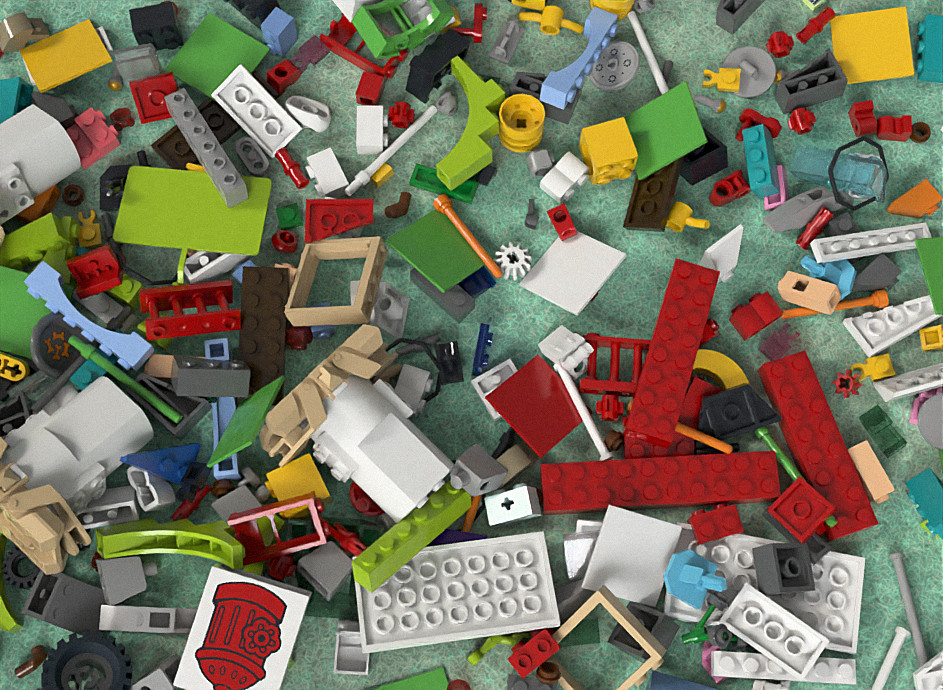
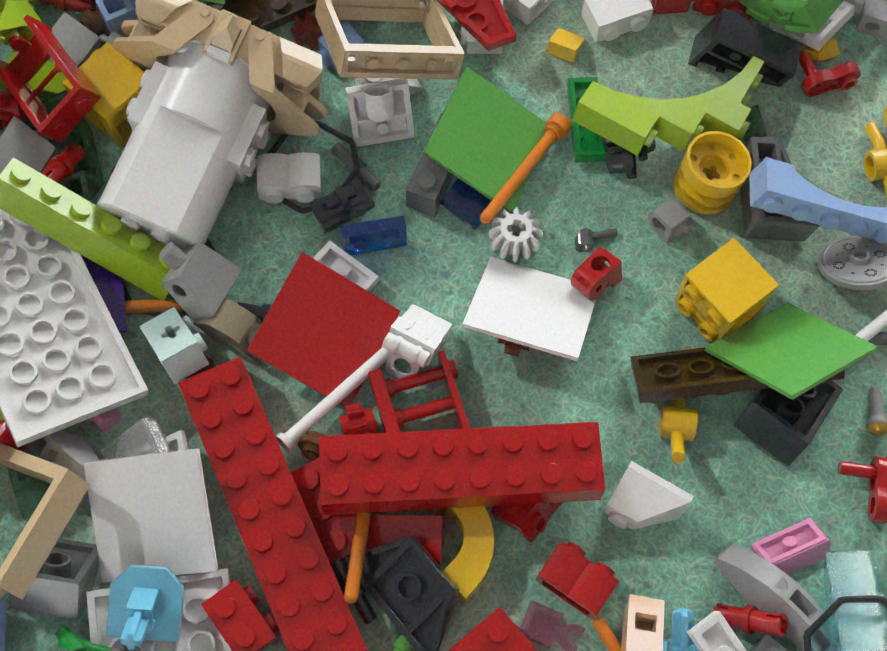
camera: 70 degrees right, 5 degrees down
(363, 177) = (547, 23): white bar -> none
(391, 371) = (296, 144): tan arm -> none
(400, 208) = (529, 83): reddish brown arm -> none
(401, 114) = (654, 37): red gear -> none
(447, 102) = (697, 81): light grey tile -> none
(507, 41) = (824, 124): light grey hinge -> none
(564, 178) = (663, 256): white brick -> none
(732, 187) = (758, 482): red piece -> none
(761, 161) = (817, 507): teal brick -> none

